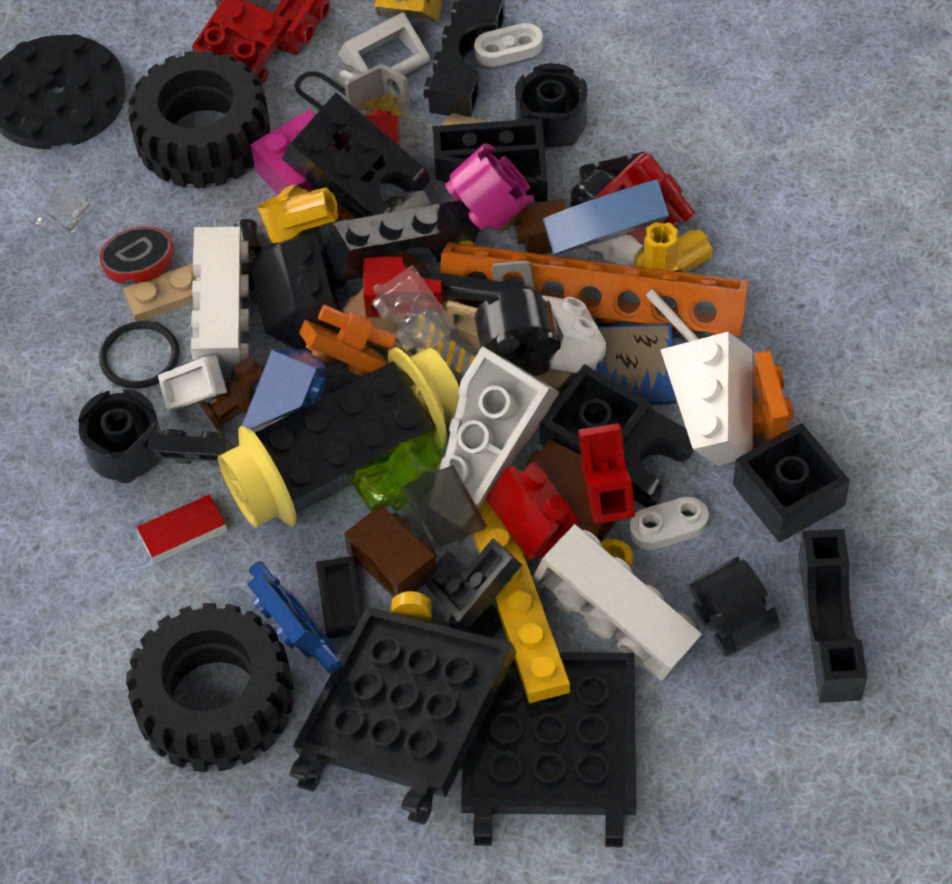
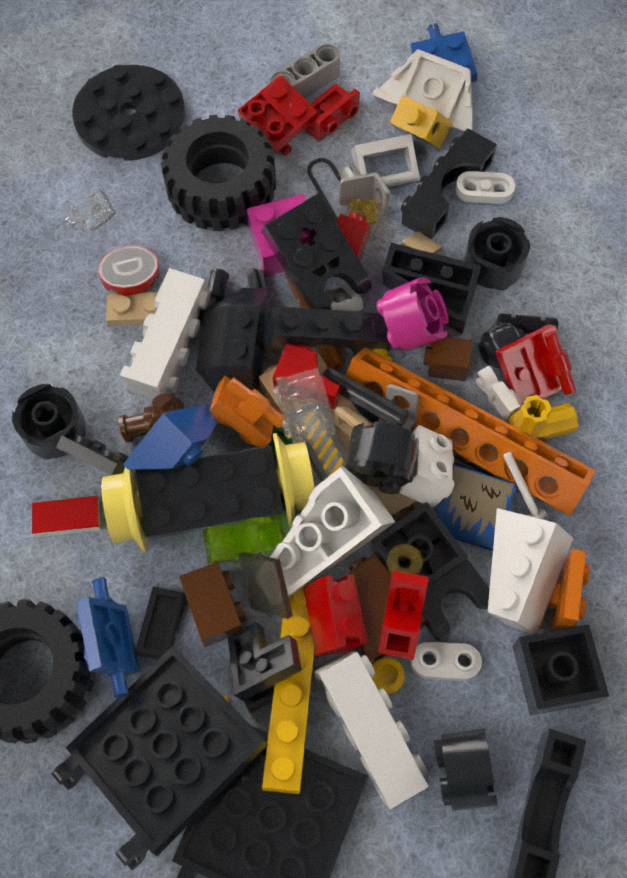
camera: 20 degrees right, 10 degrees up
(131, 326) = (127, 349): black tyre -> none
(192, 383) = (118, 399): white tile -> none
(297, 211) = (253, 281): yellow piece -> none
(412, 605) = (208, 660): yellow tile -> none
(580, 418) = (408, 551): none -> clear yellow plate
(606, 217) = (497, 374): medium blue slope -> none

